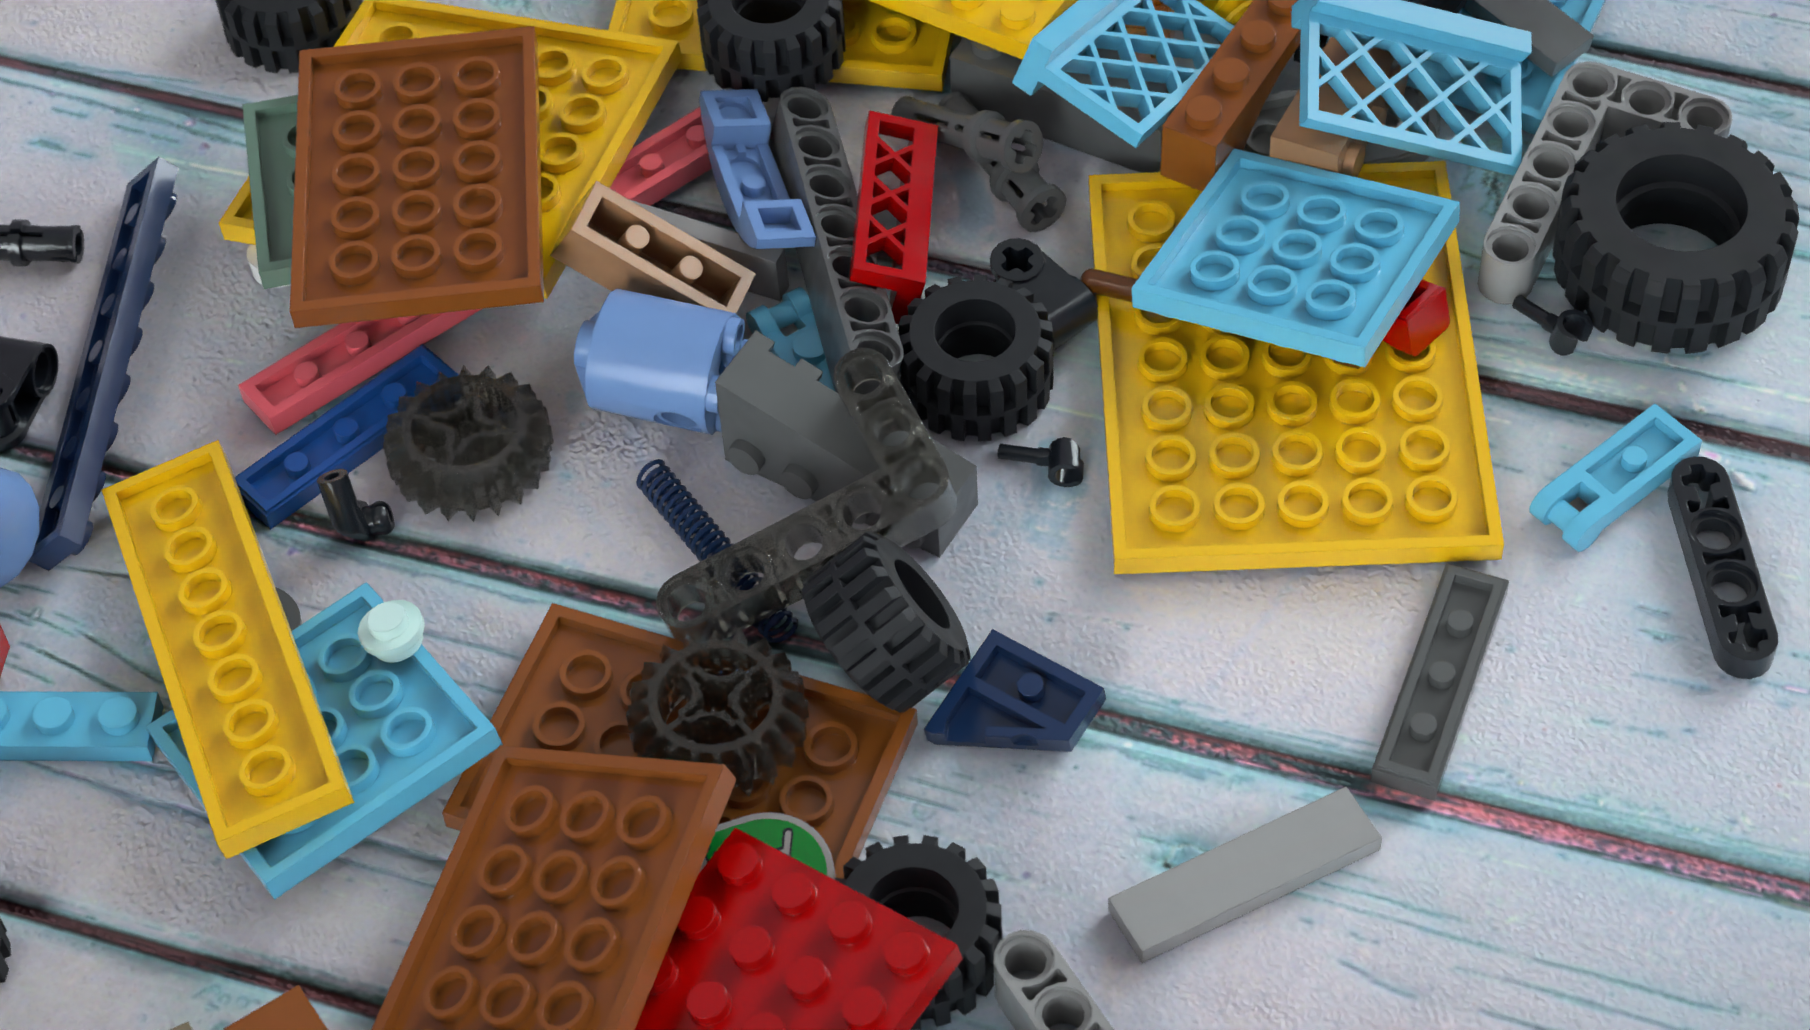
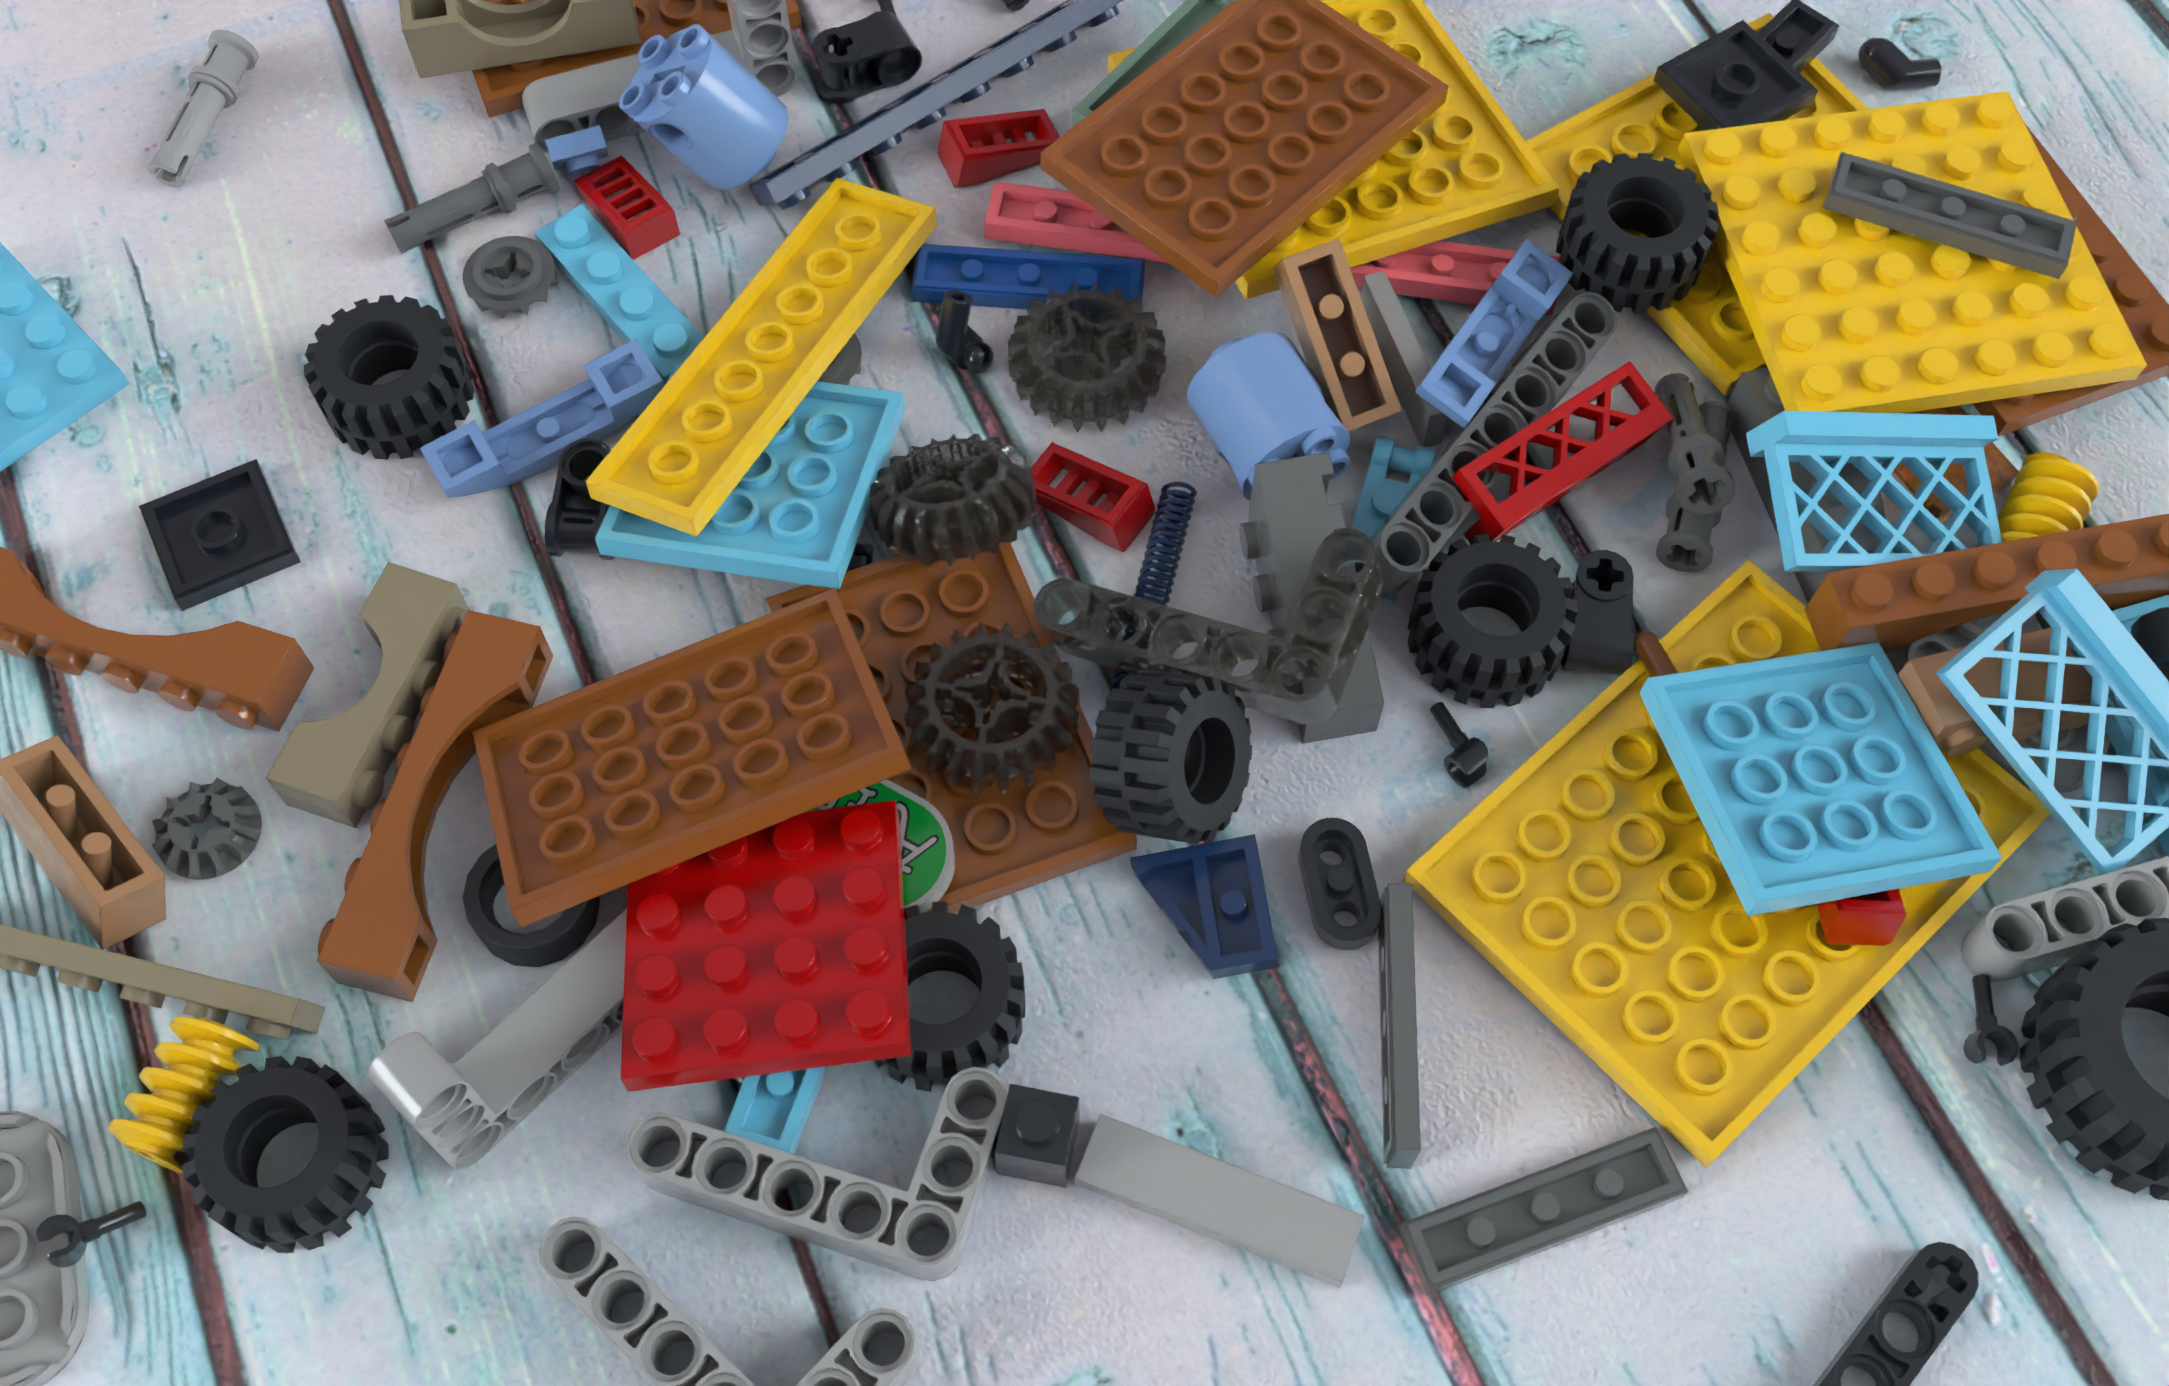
camera: 45 degrees right, 10 degrees up
(100, 861) = (534, 440): none -> medium blue slope
(194, 369) = (971, 161): none -> red slope
(212, 890) = (572, 515): none -> black piece
(392, 630) = (863, 441): light aqua plate -> none
(505, 614) = (952, 499): none -> clear smoke gear
(591, 552) = (1118, 516): none -> red slope
(1083, 612) = (1341, 886): none -> black plate
(1095, 941) = (1037, 1135): none -> black brick
(1227, 656) = (1398, 1028): none -> dark grey tile
(1615, 476) = (1882, 1199): medium azure plate -> none

